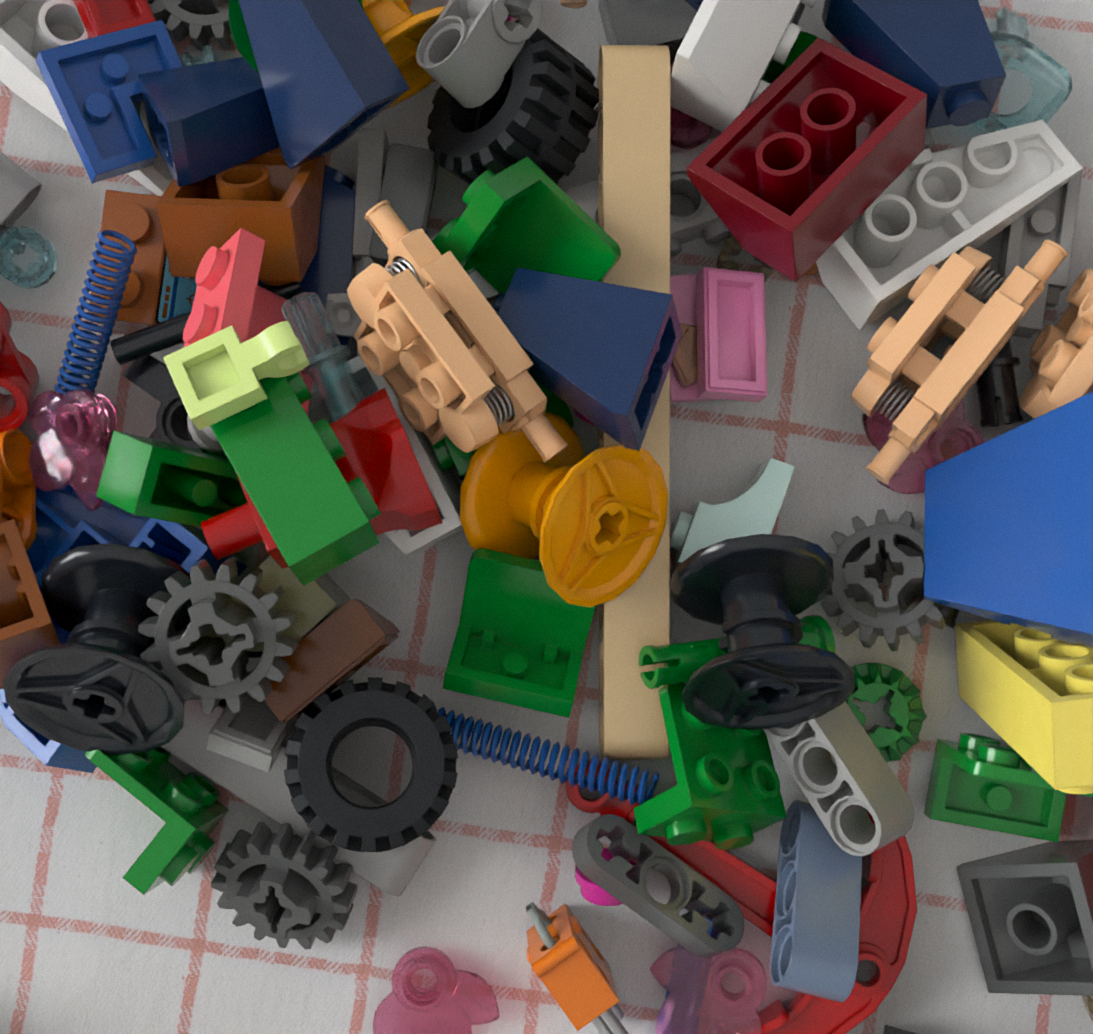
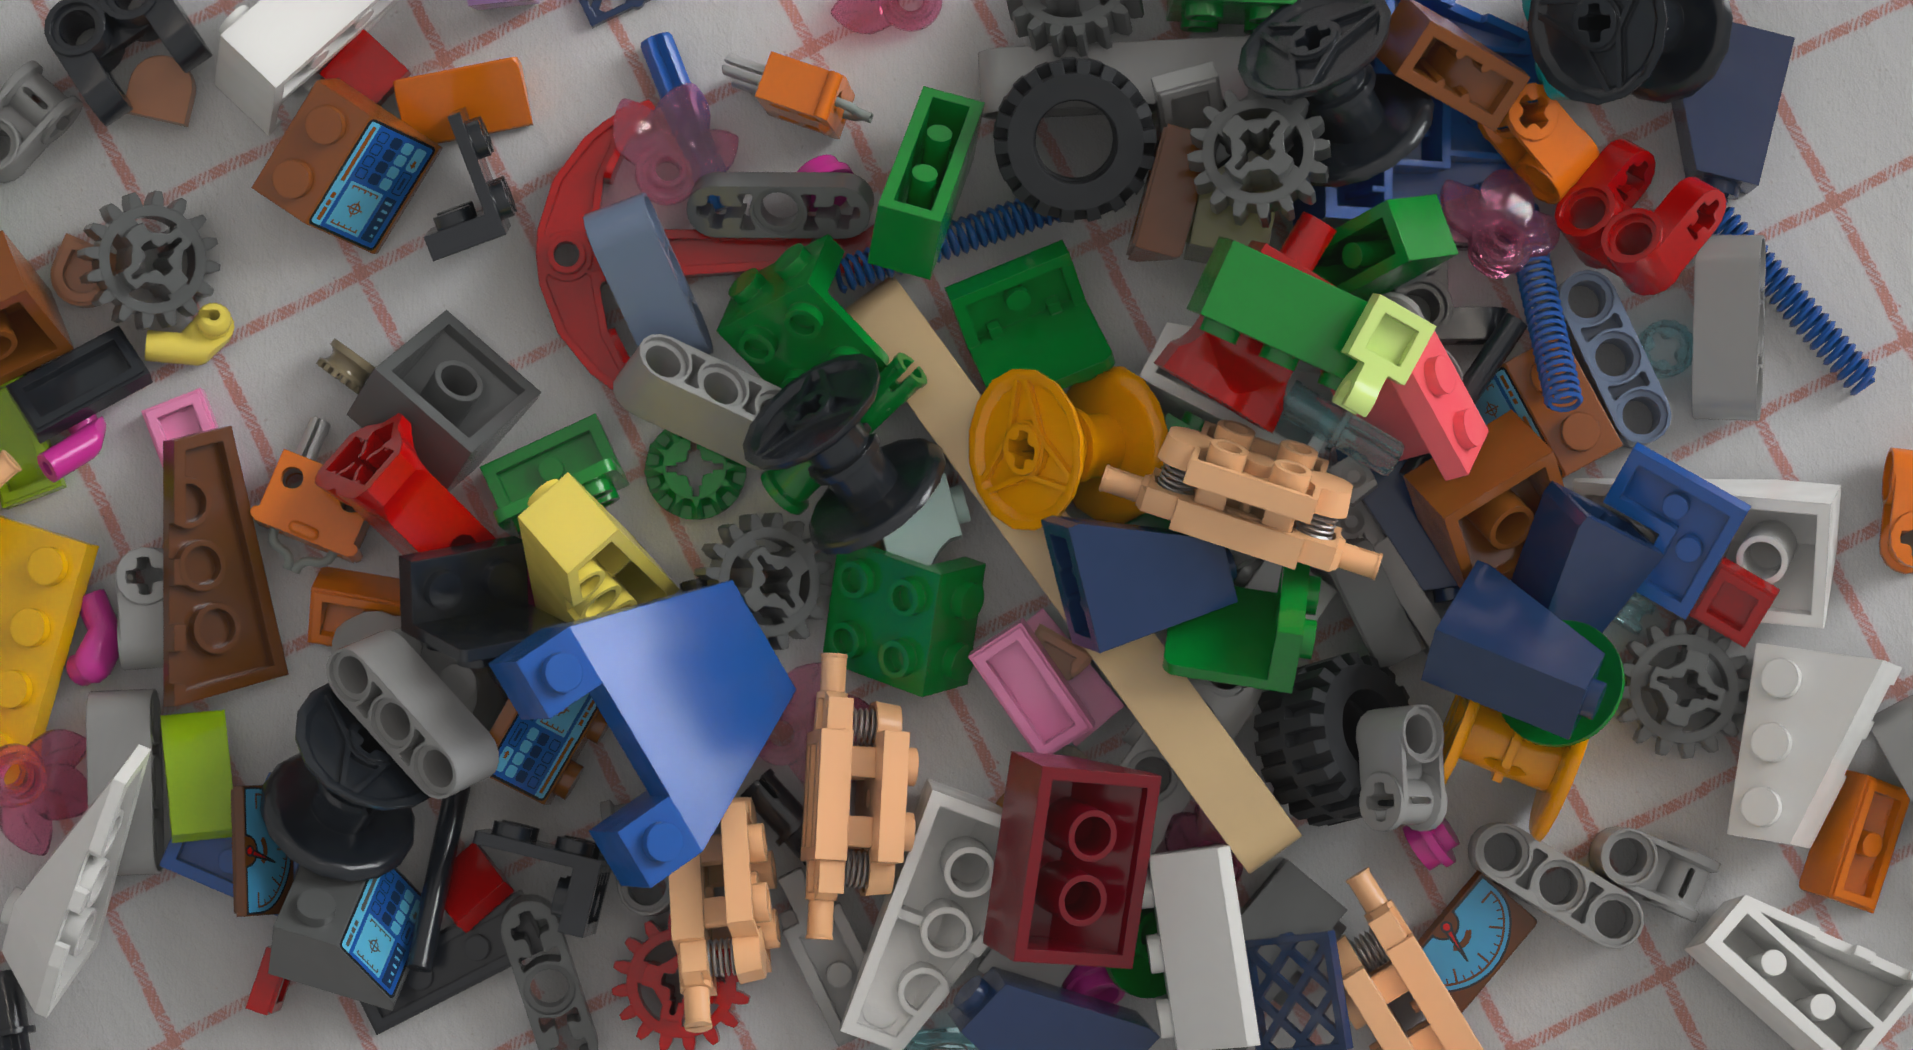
camera: 150 degrees right, 0 degrees up
(56, 250) = (1614, 327): none -> sand blue beam
(527, 818) = (925, 183): none -> green brick
(793, 461) = (905, 619): none -> green bracket

